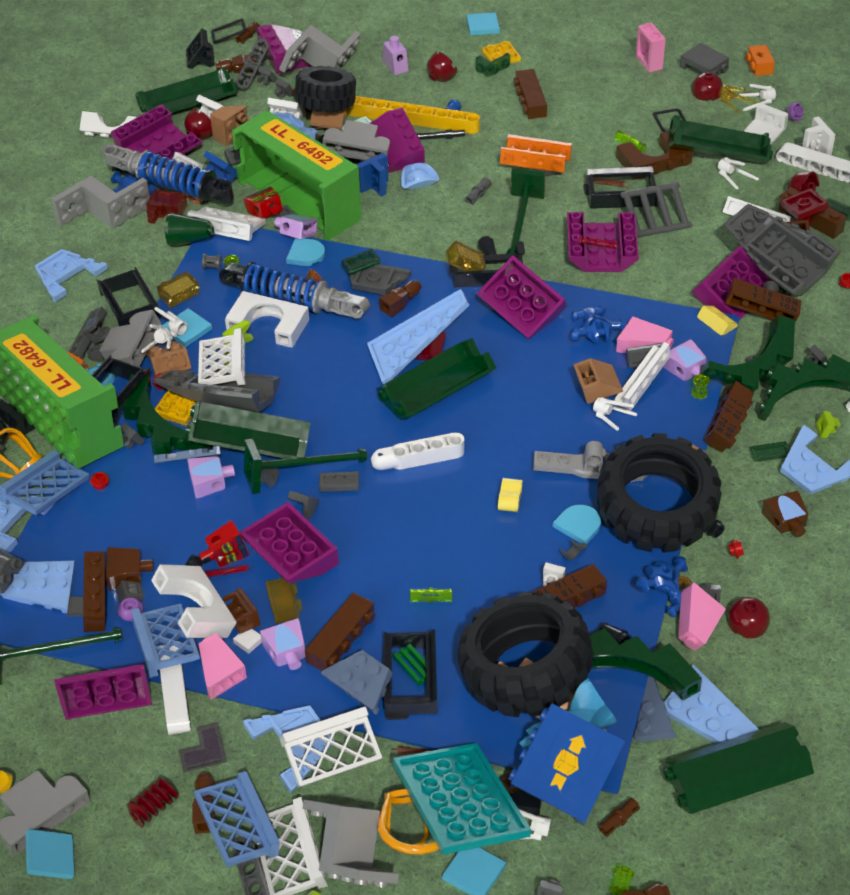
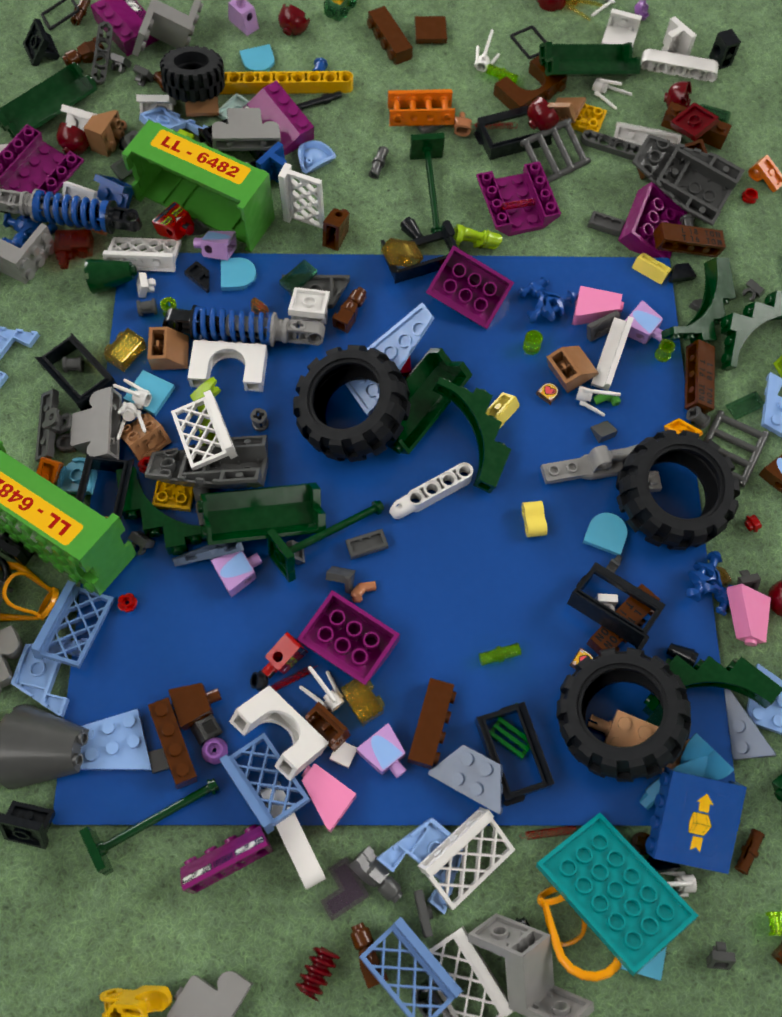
camera: 20 degrees left, 20 degrees up
(128, 294) = (73, 364): none -> dark grey bush
(216, 244) = (144, 285): none -> white tile
(216, 294) = (167, 349): none -> medium nougat slope
(238, 740) = (376, 875): none -> dark grey piece
(254, 592) = (332, 699): none -> white plant
(270, 247) = (199, 275): none -> black tile
(271, 784) = (424, 913): none -> dark grey plate
(281, 365) = (255, 419): none -> dark grey bush
(321, 515) = (360, 589): none -> nougat arm
(362, 284) = (309, 305): none -> white bracket
(377, 198) = (289, 196): none -> white fence
(378, 383) = (329, 375): none -> black tyre
(397, 92) = (258, 58): none -> medium azure tile
(413, 233) = (336, 221): none -> reddish brown torso
(486, 392) = (485, 427): none -> dark green arch
(515, 405) = (503, 407): none -> light yellow slope
(528, 563) = (607, 617): none -> black piece
(554, 267) = (482, 239): none -> lime piece
(567, 399) = (548, 392): none -> tile
(568, 355) = (532, 342): none -> clear neon green wheel
(572, 175) = (462, 125): none -> nougat piece
(573, 96) = (430, 29): none -> reddish brown tile
(610, 441) = (603, 431): none -> dark grey slope
(616, 126) = (482, 62): none -> white plant
(627, 413) = (615, 400): none -> bright green arm
(641, 490) = (654, 481): none -> white tile
(648, 174) = (541, 116): none -> dark red cylinder
(683, 176) = (568, 107): none -> medium nougat bracket
(685, 276) = (606, 223): none -> dark grey plate
(702, 191) = (589, 119): none -> yellow tile
(703, 208) = (612, 143): none -> dark grey beam
(713, 449) = (701, 420): none -> dark grey bush
(747, 330) = (682, 272): none -> black tile
(752, 501) = (755, 450): none -> dark grey bar

